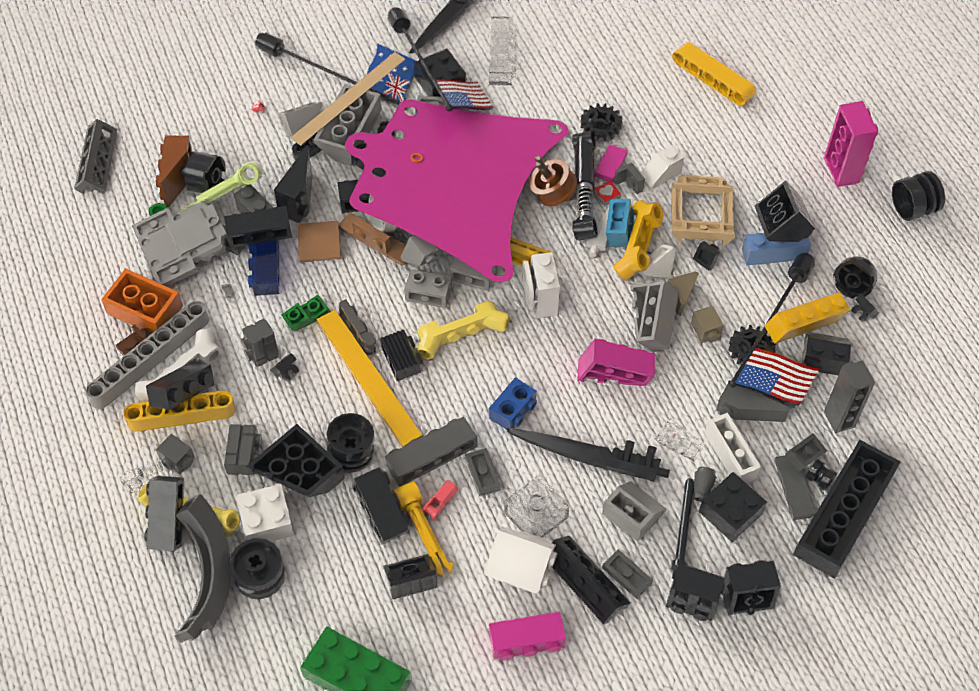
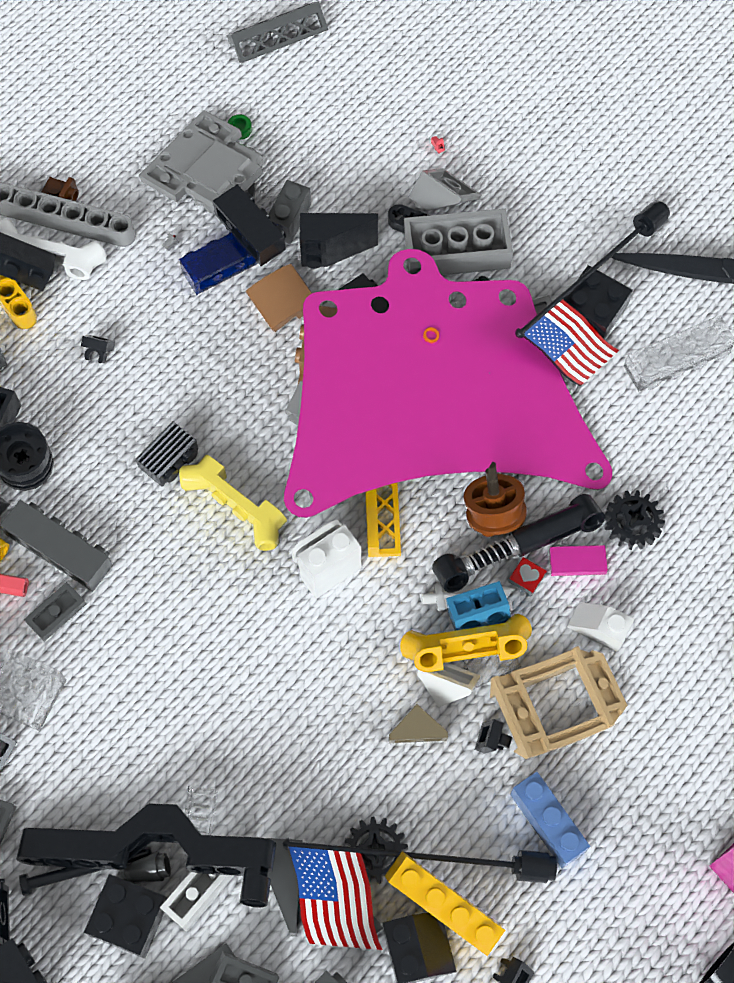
camera: 65 degrees right, 10 degrees up
(141, 301) = (106, 170): orange brick -> none
(174, 155) = (292, 107): dark orange slope -> none
(203, 171) = (303, 138): black brick -> none
(238, 179) = (307, 176): yellowish green piece -> none
(259, 343) = (106, 305): dark grey brick -> none
(302, 316) = (179, 333): green slope -> none
(347, 98) = (487, 223): tan sticker -> none
(357, 328) = (182, 391): dark grey hinge -> none
(369, 378) = (125, 438): yellow tile -> none
(390, 87) = (563, 249): flag -> none
(428, 288) = (273, 438): light grey brick -> none
(509, 402) = (159, 596): blue brick -> none
(616, 362) = (267, 696): dark pink wedge -> none
(618, 460) = (133, 734): black piece -> none
(632, 177) = (563, 595): dark grey bracket -> none
(632, 510) = (73, 798): light grey slope -> none
(655, 313) = (356, 710): light grey wedge -> none
(681, 456) = (156, 823): none -> black beam
(707, 324) = (381, 781): dark tan brick -> none
(784, 215) = (592, 809): black slope -> none
(855, 276) = (555, 945): black cylinder -> none

